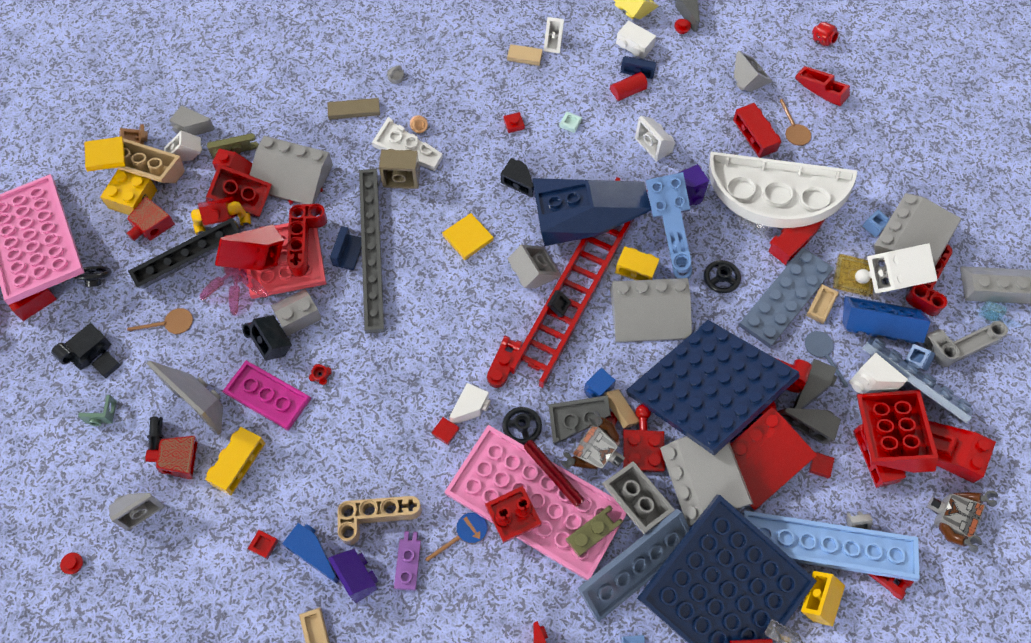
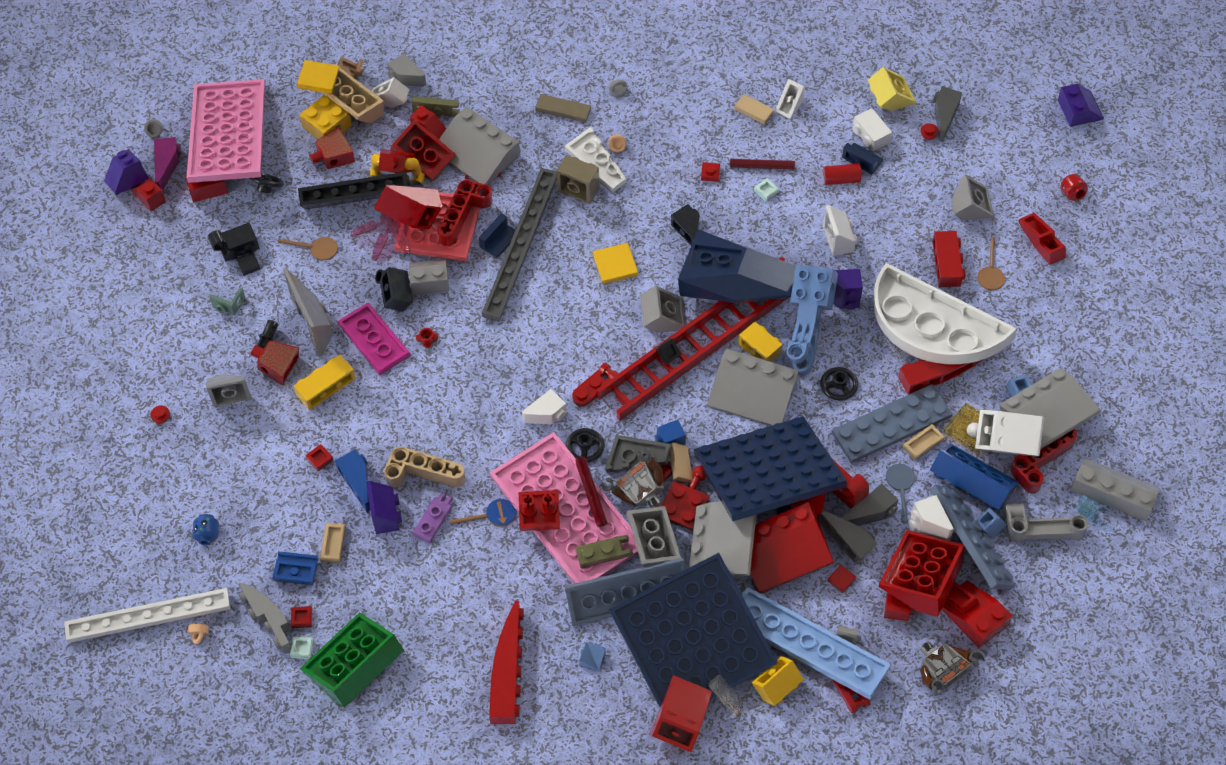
camera: 25 degrees right, 5 degrees down
(445, 431) = (514, 424): red tile -> none
(555, 100) = (762, 164): none -> dark red piece

